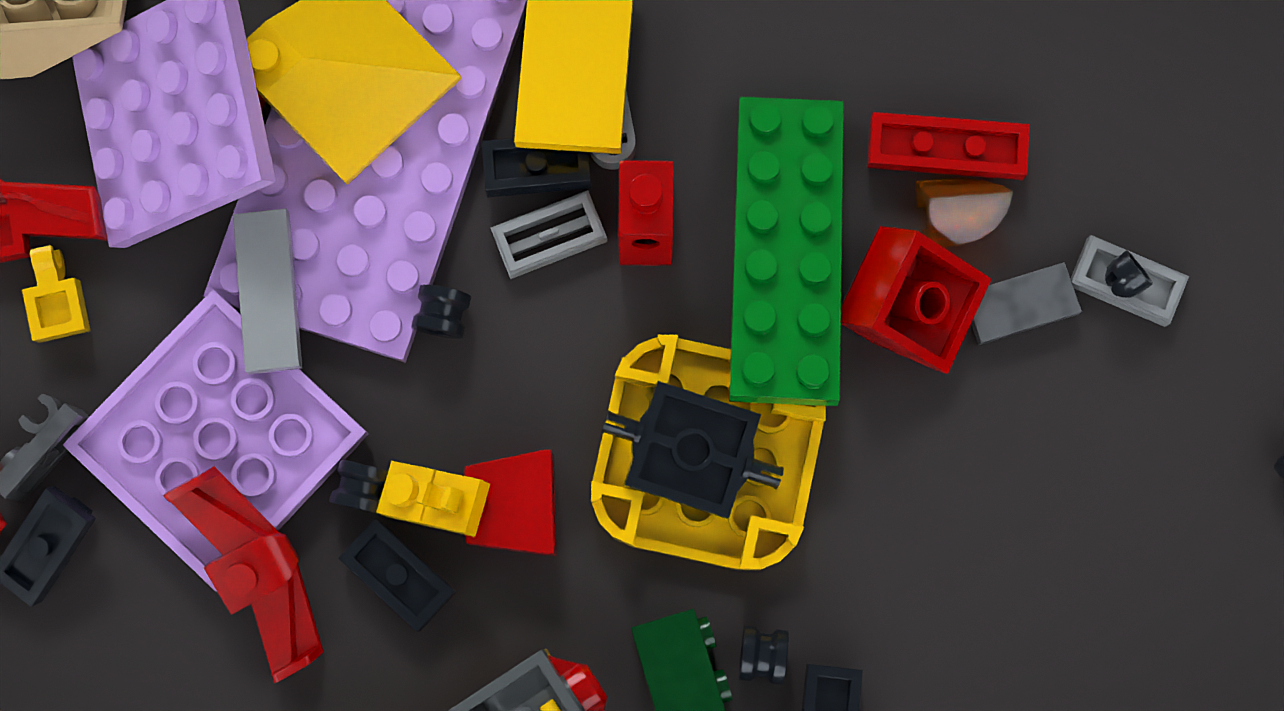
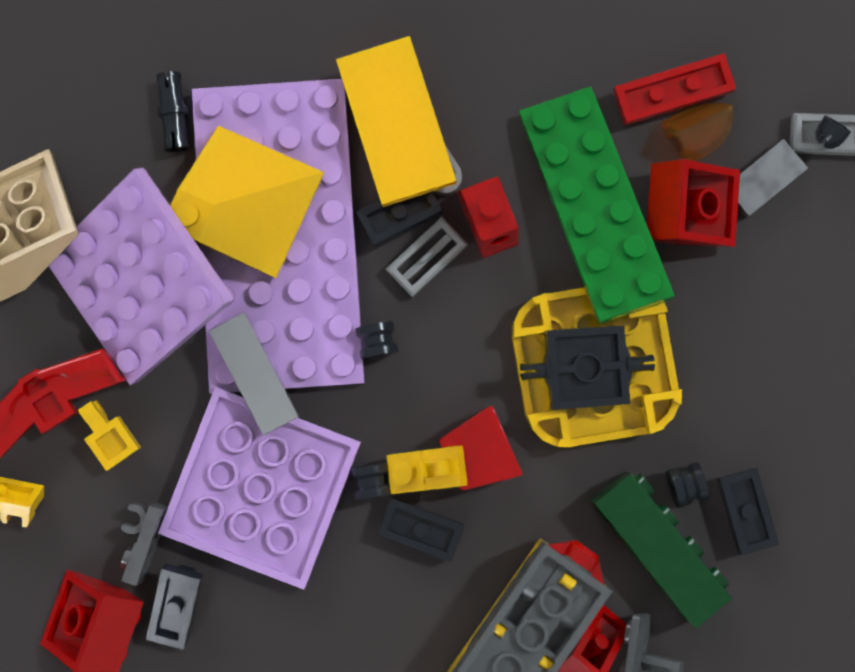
camera: 20 degrees left, 5 degrees up
(254, 569) = (324, 565): red plate -> none

